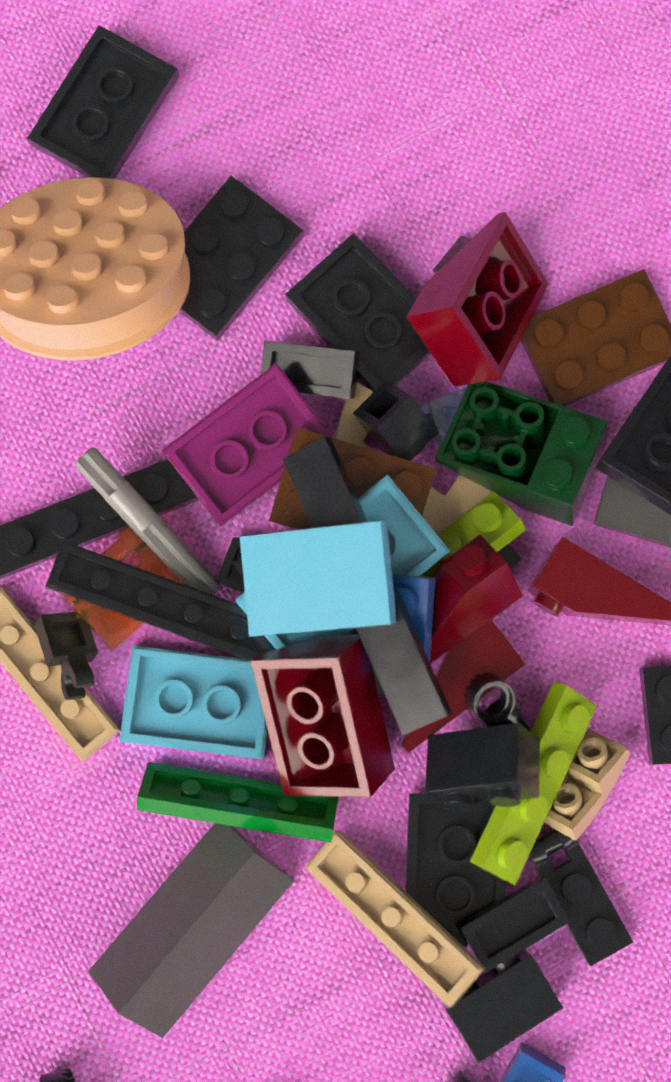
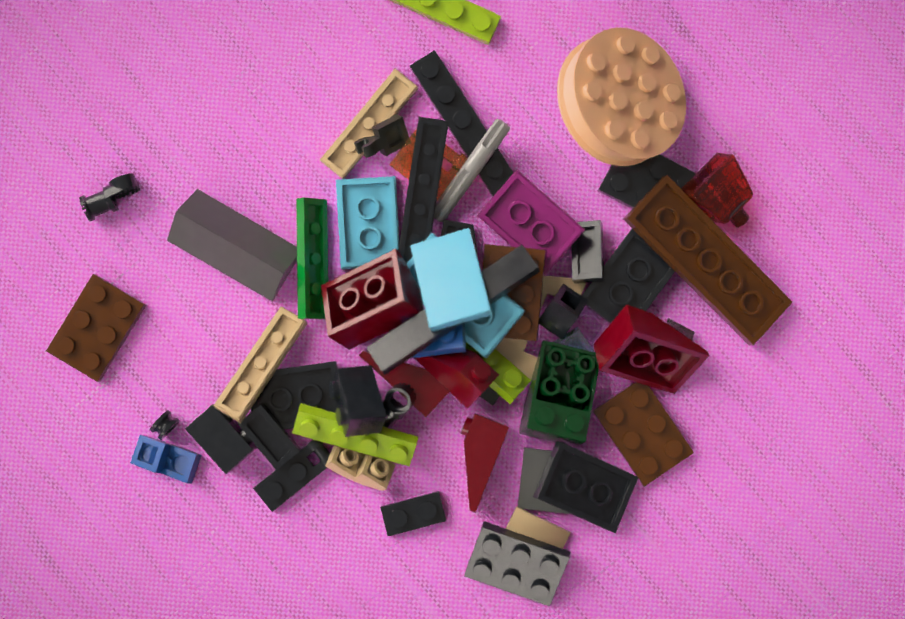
camera: 80 degrees right, 5 degrees up
(103, 106) = (736, 88): black plate -> none
(254, 154) = (721, 190): none -> clear red torso
(355, 192) = (707, 260): none -> reddish brown plate

